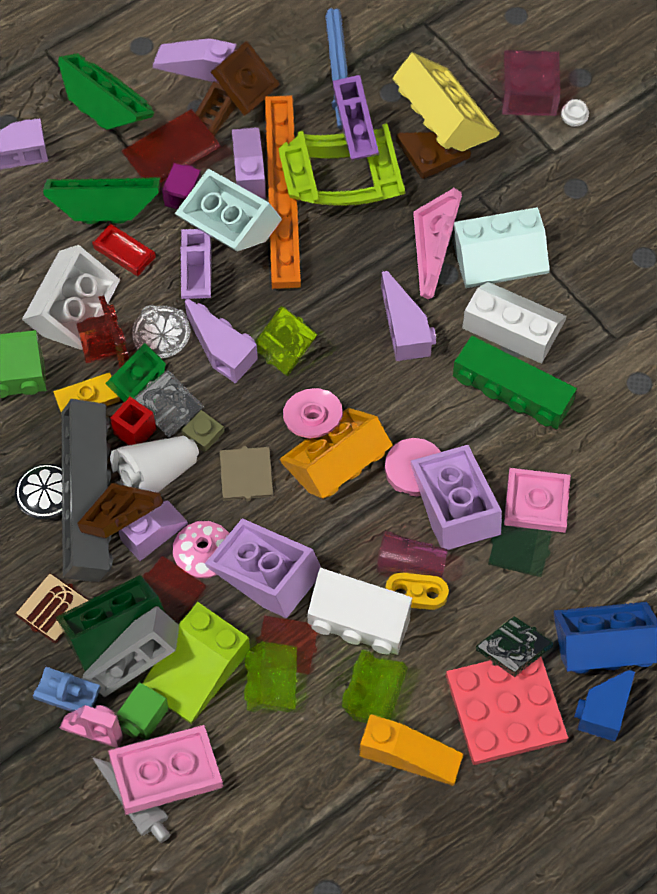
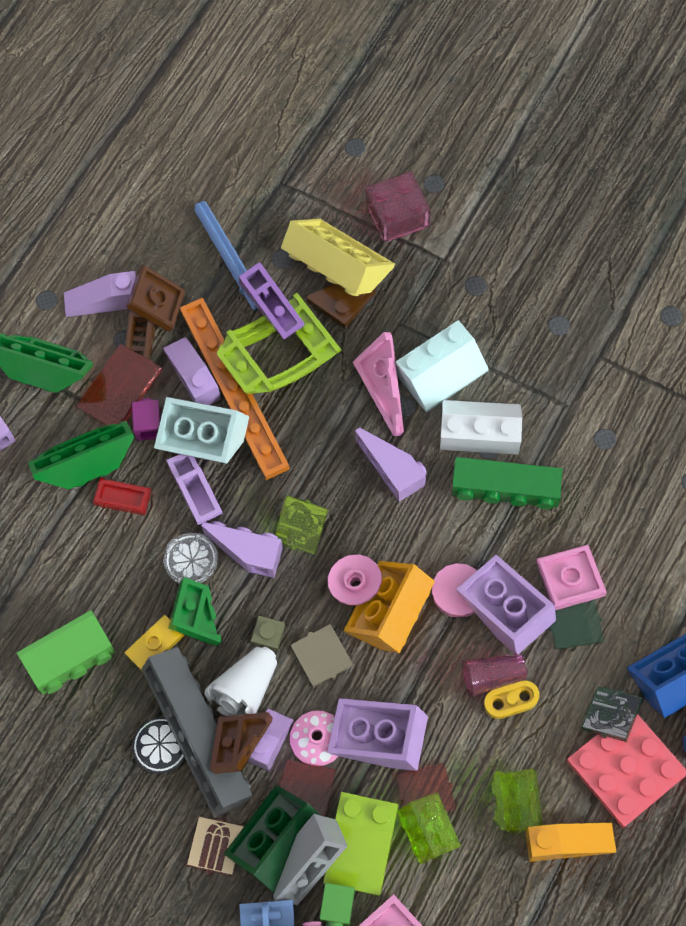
camera: 20 degrees left, 5 degrees up
(70, 295) = (99, 561): white slope -> none
(102, 336) = (147, 586): clear red bracket -> none
(133, 422) = (209, 654): red brick -> none
(169, 402) = (228, 622): clear piece -> none
(359, 612) = (477, 741): white slope -> none
(575, 113) = (445, 219): white plate -> none

